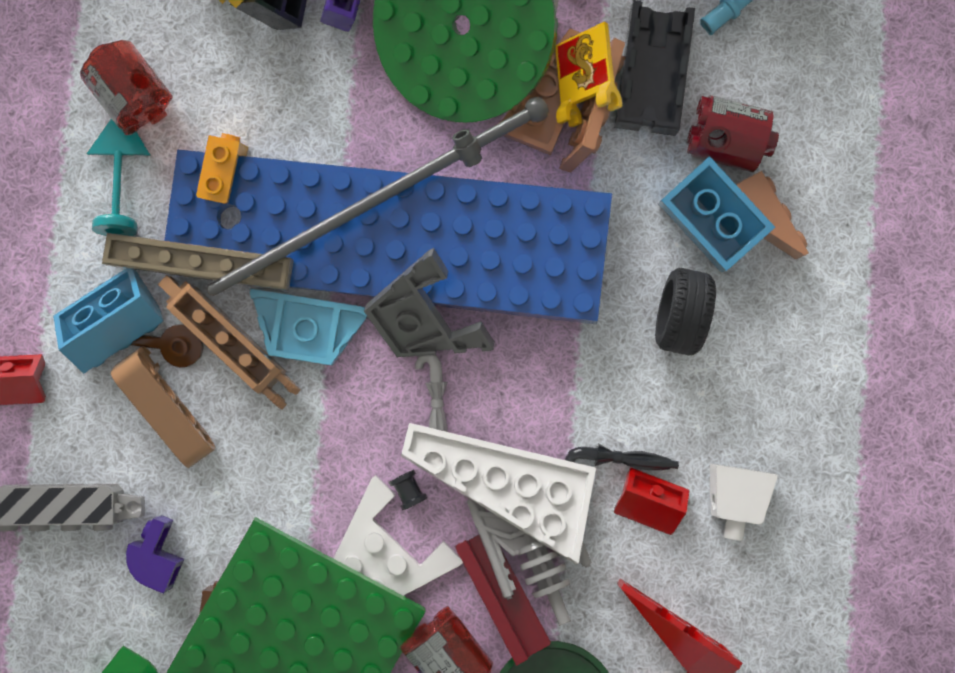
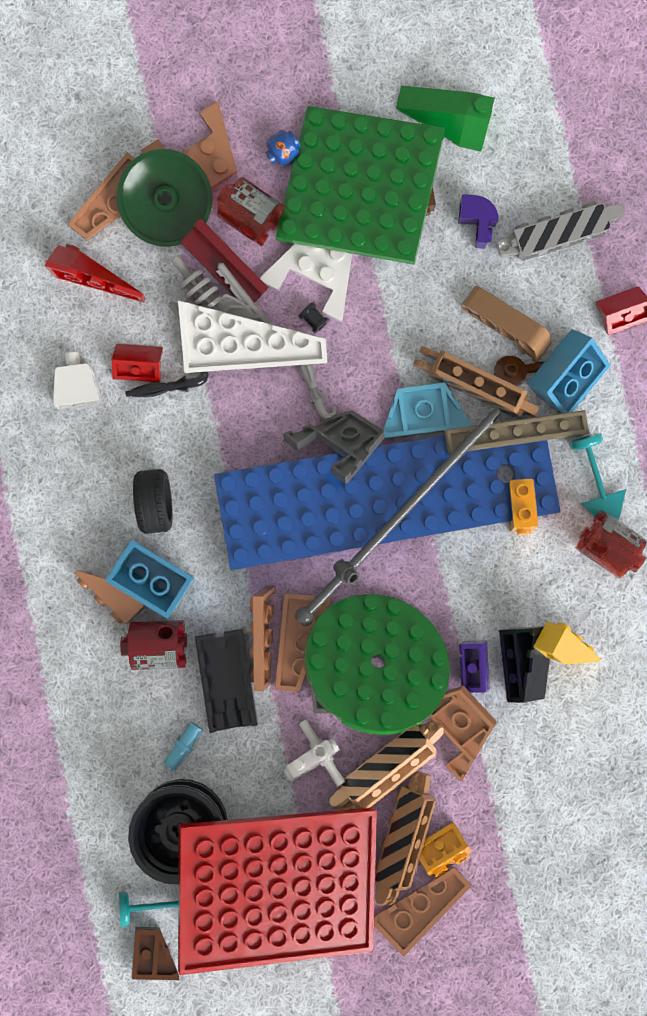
camera: 155 degrees right, 0 degrees up
(585, 72) = (276, 654): yellow flag -> none

